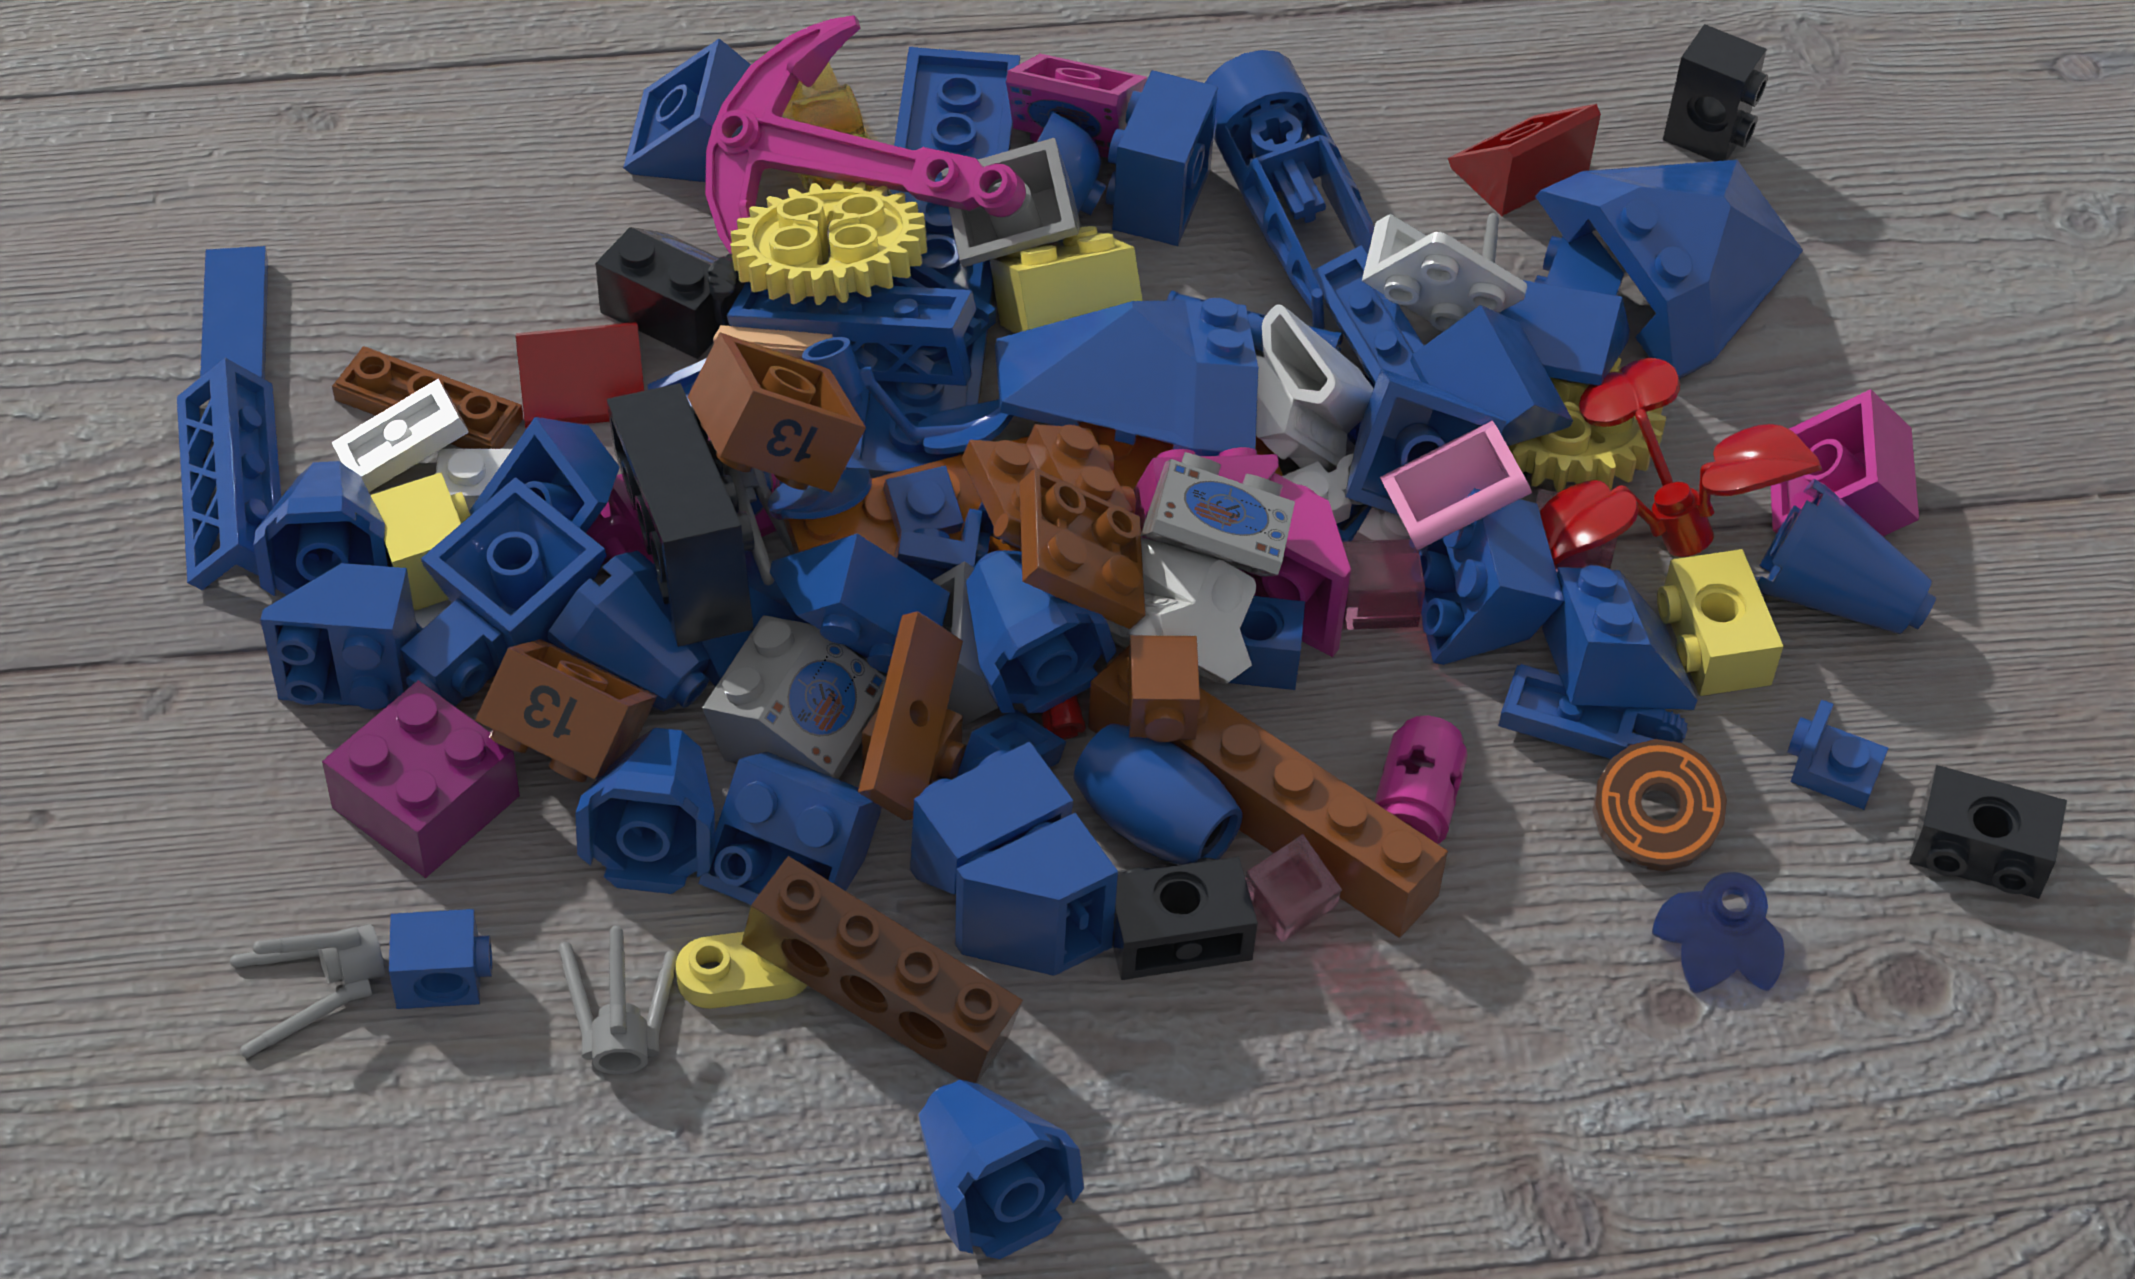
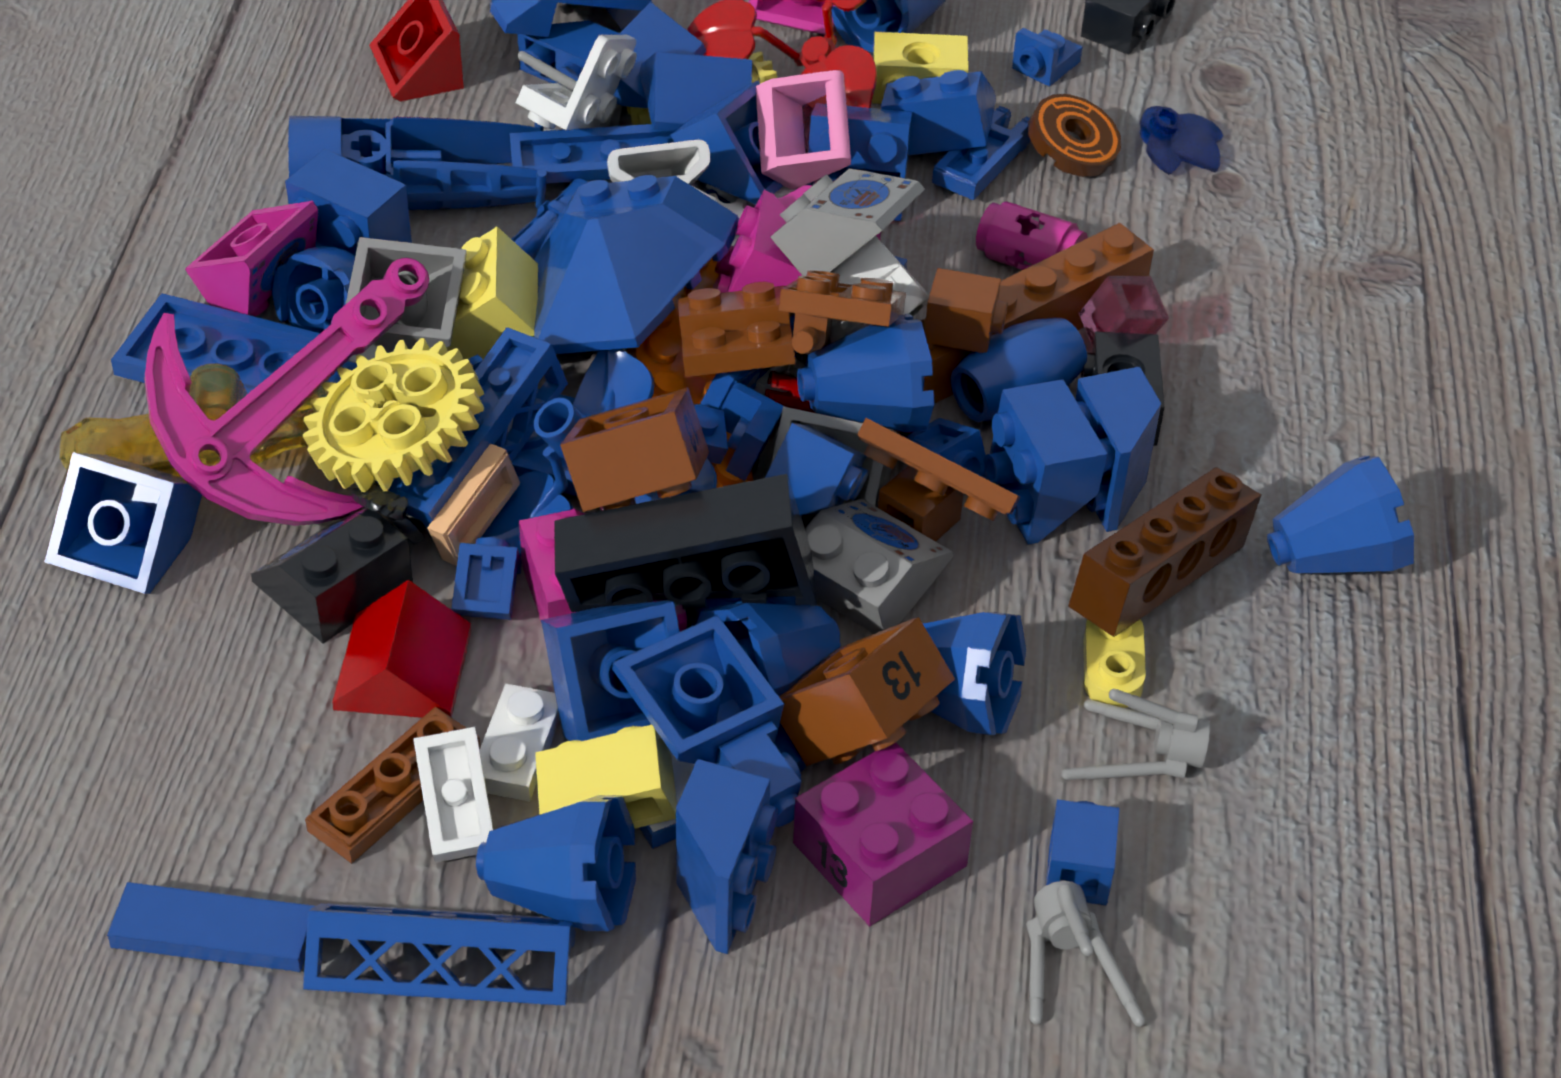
camera: 75 degrees left, 5 degrees down
(784, 812) = (1008, 572): blue slope -> none

